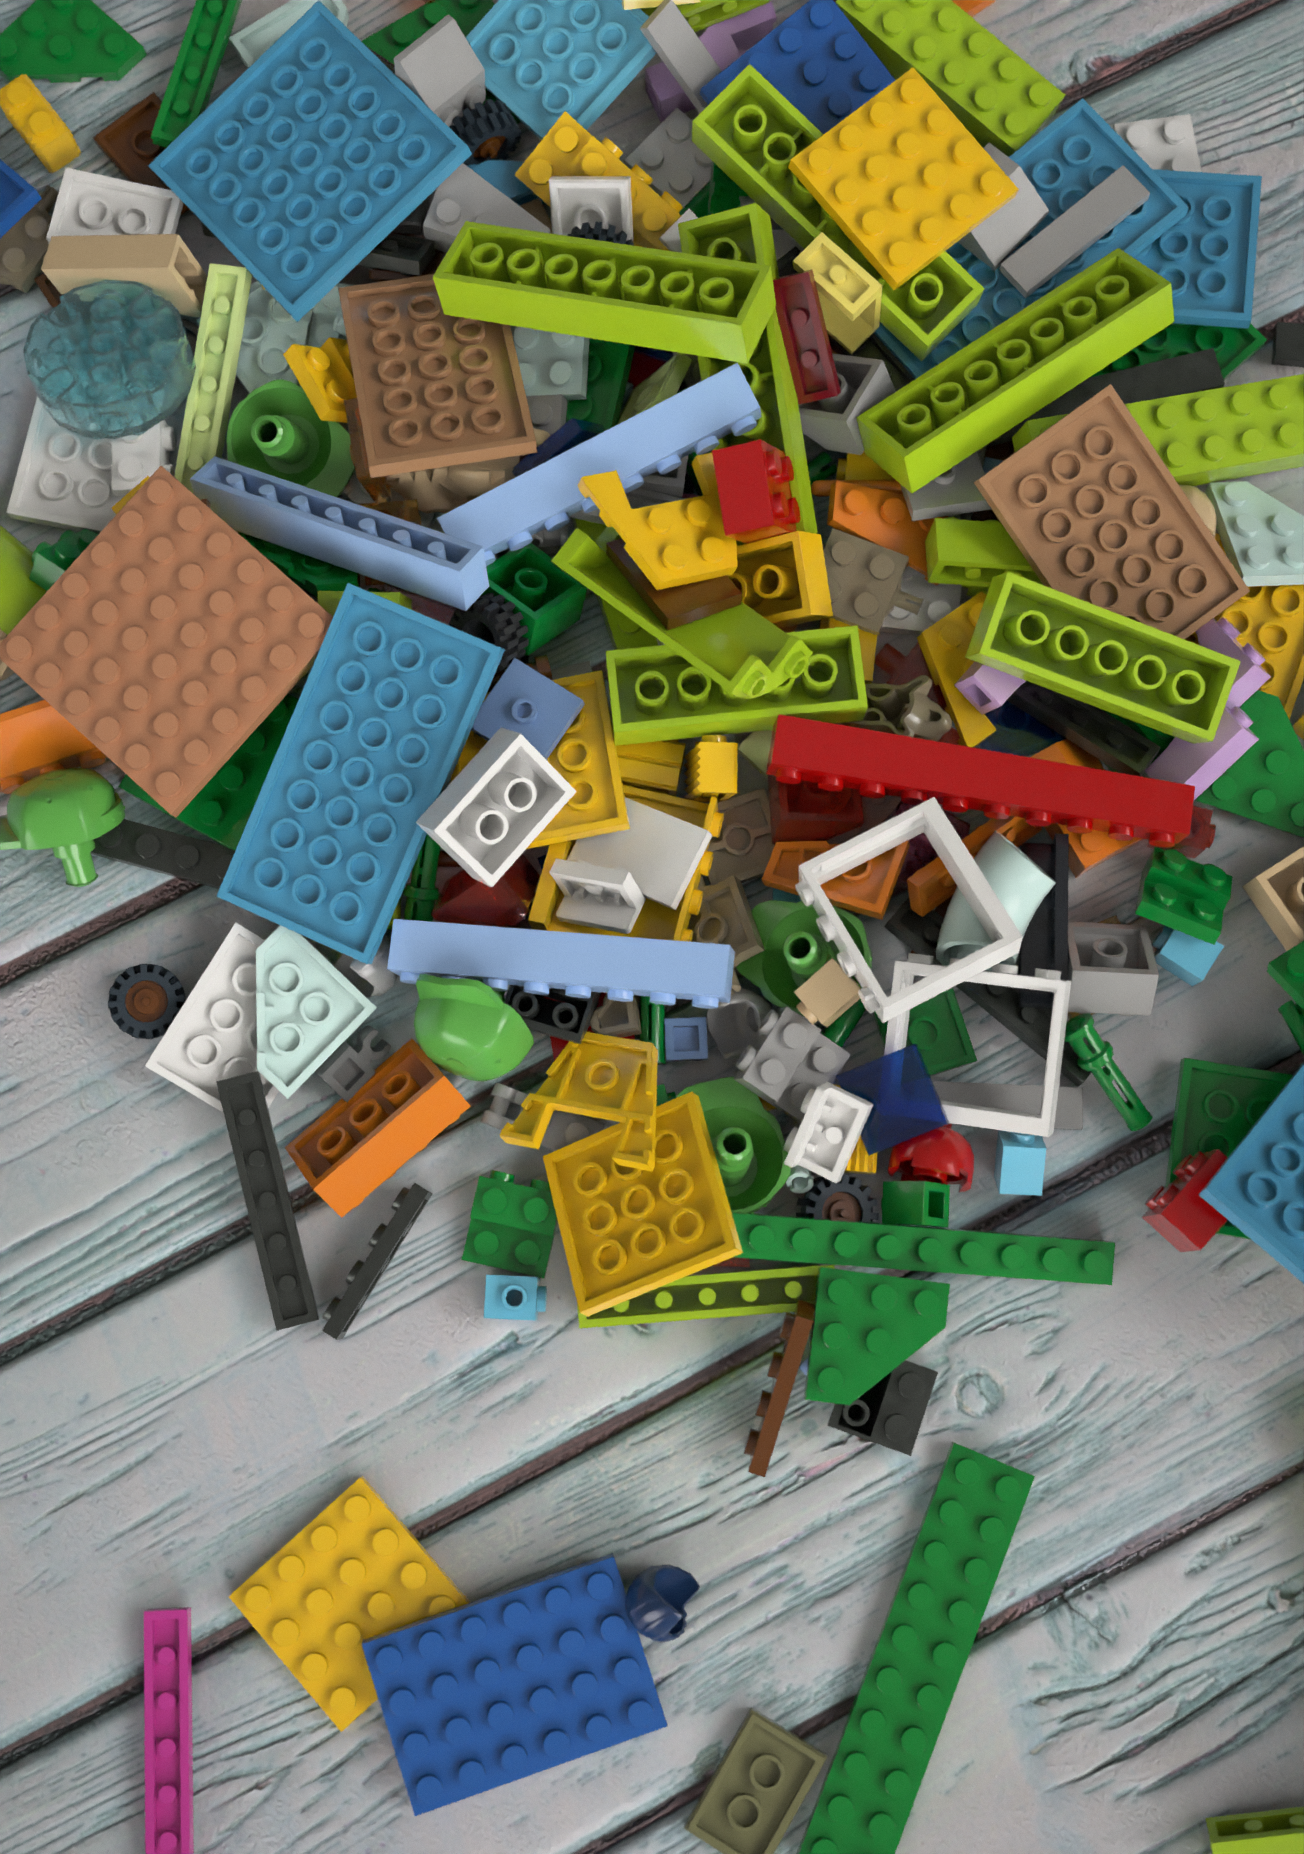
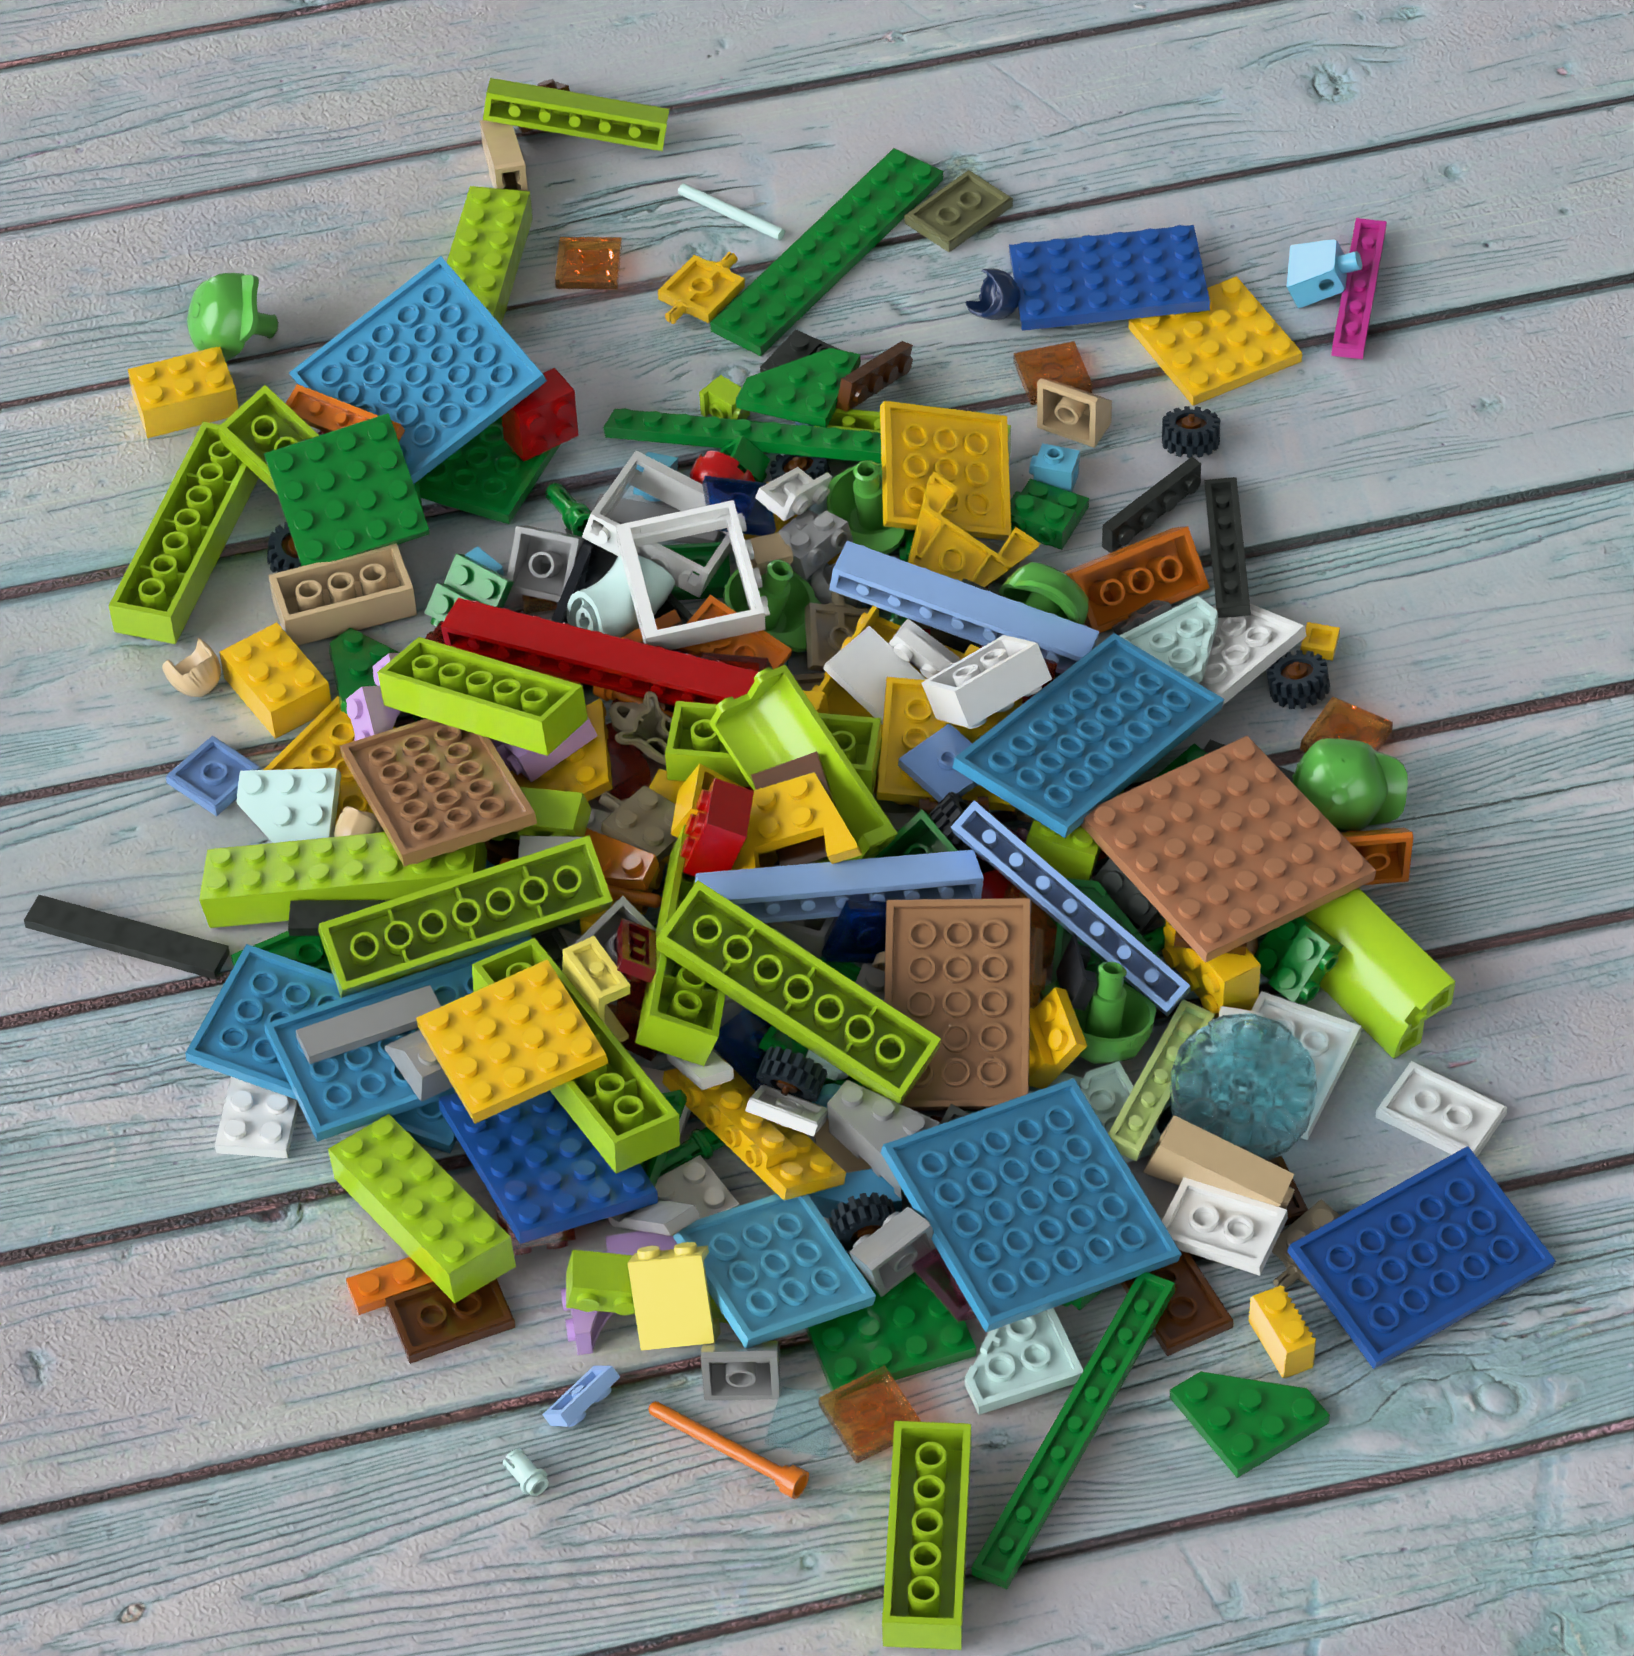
camera: 165 degrees left, 30 degrees down
(79, 933) = (1347, 722): none -> clear orange plate
(130, 1078) = (1321, 640): none -> yellow plate
(223, 1753) = (1319, 271): none -> medium azure torso
(311, 431) = (1074, 976): none -> black piece
(349, 1401) = (1191, 432): none -> black wheel
(507, 1406) = (1072, 412): none -> tan slope
(556, 1489) = (1055, 363): none -> clear orange plate
(970, 1324) = (719, 400): none -> lime brick
(1065, 1540) = (701, 288): none -> yellow plate
(1072, 1716) = (731, 211): none -> light aqua bar
(1234, 1557) = (588, 263): none -> clear orange plate

